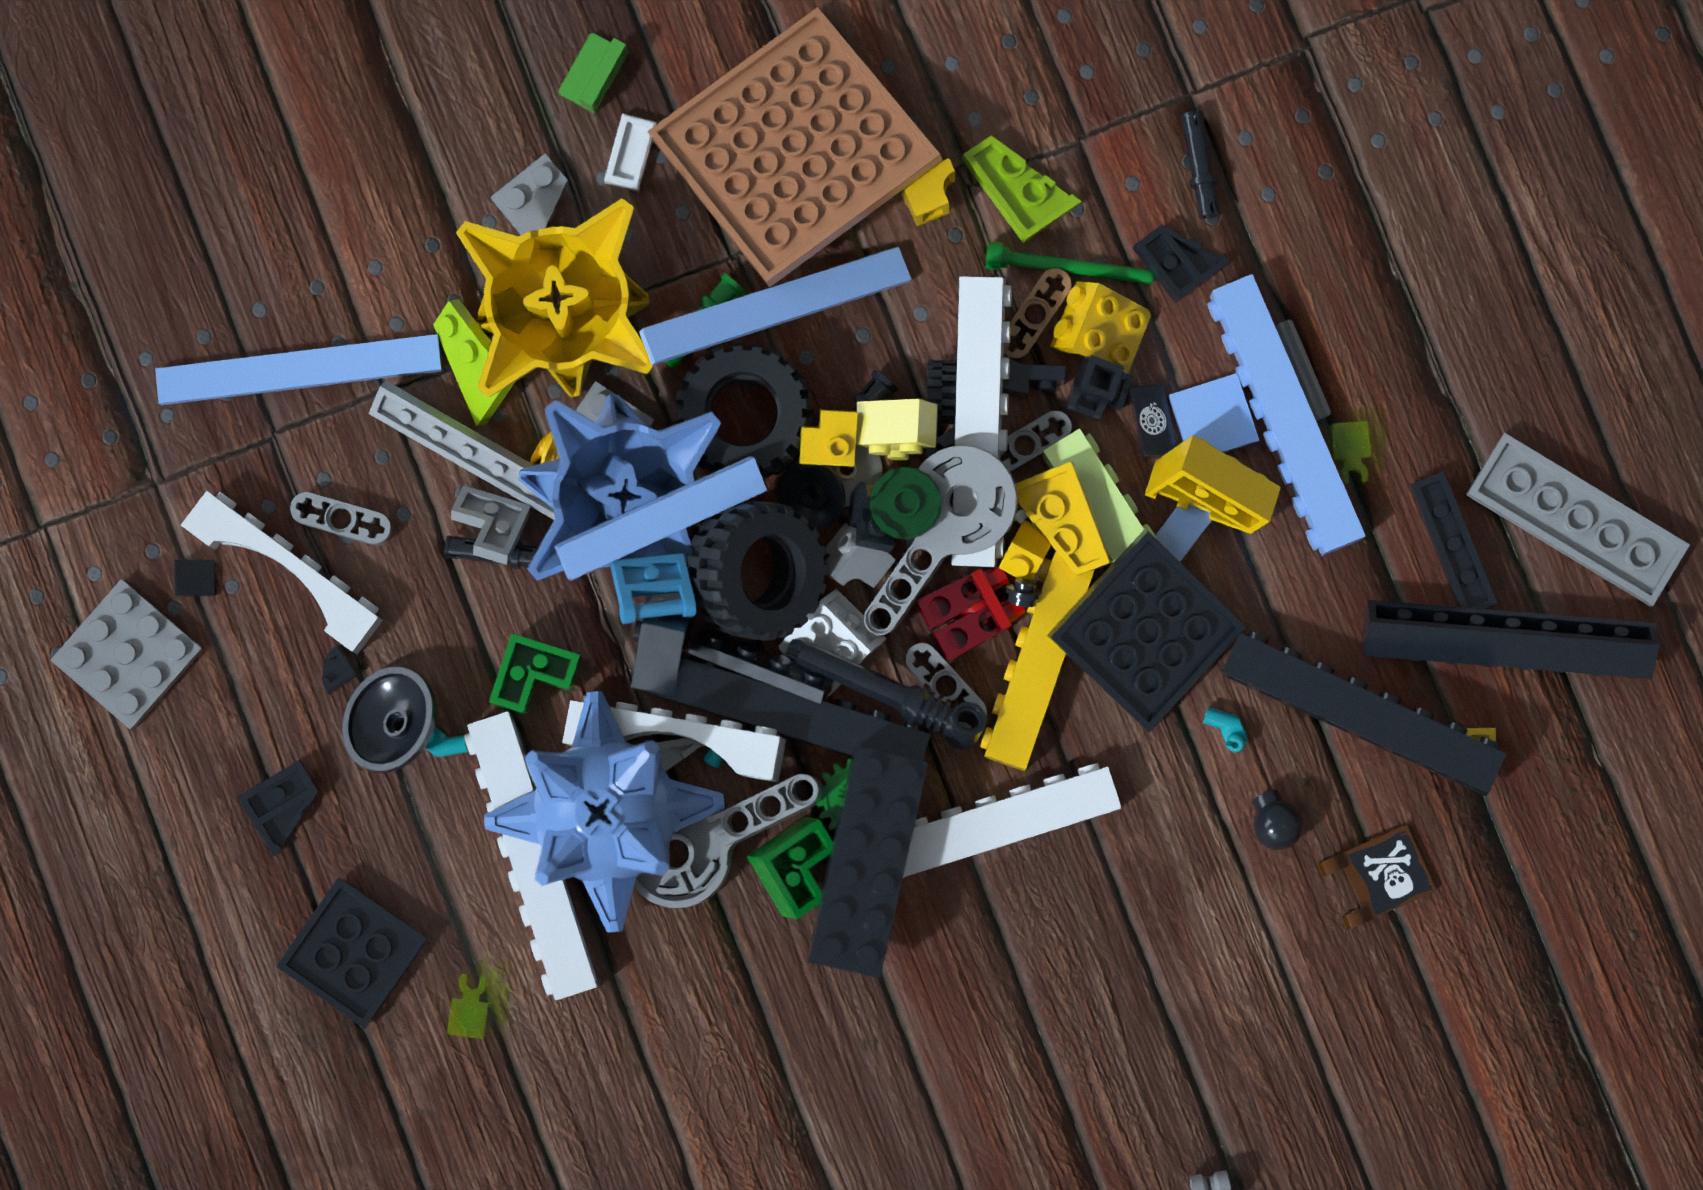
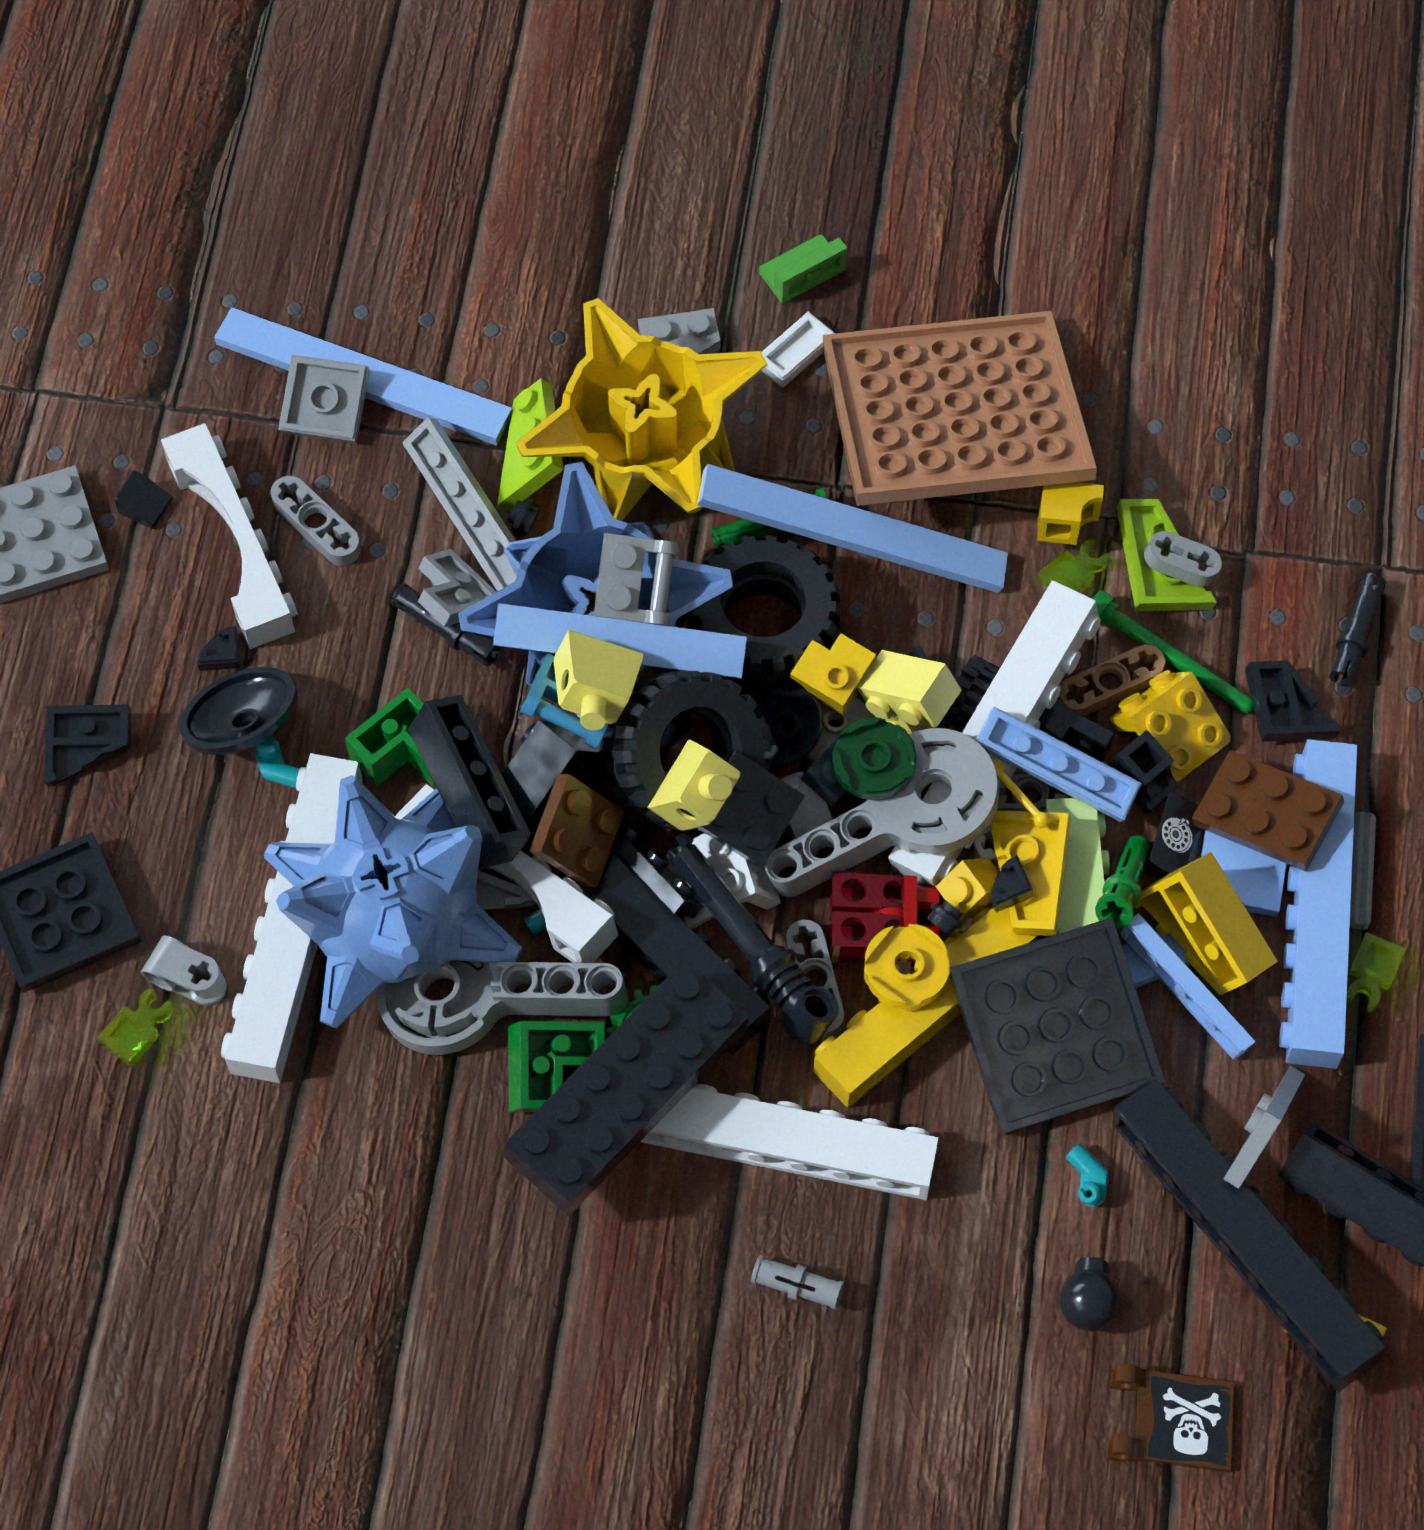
camera: 25 degrees right, 20 degrees down
(283, 410) = (324, 399): none -> light grey plate
(472, 946) = (179, 970): none -> light grey piece
(504, 425) = (523, 515): none -> black plate
(611, 692) = (469, 778): none -> black brick
(636, 470) = (622, 574): none -> light grey plate
(665, 566) = (594, 678): none -> light yellow torso
(715, 685) = (577, 830): none -> reddish brown plate
(789, 606) = (697, 784): none -> light yellow torso
(830, 593) = (754, 812): none -> black plate
(955, 237) = (1074, 571): none -> clear neon green plate
(999, 662) = (908, 990): none -> yellow plate
(1038, 173) = (1182, 558): none -> light grey beam
(1040, 424) = (1058, 764): none -> light blue tile
(1053, 478) = (1041, 819): none -> yellow hinge
(1058, 543) = (1010, 885): none -> black tile
(1063, 926) = (770, 1272): none -> light grey pin
(1140, 497) = (1122, 889): none -> green pin
(1212, 367) = (1268, 810): none -> reddish brown plate
(1224, 544) = (1187, 987): none -> light blue tile
(1340, 624) = (1263, 1124): none -> light grey wing

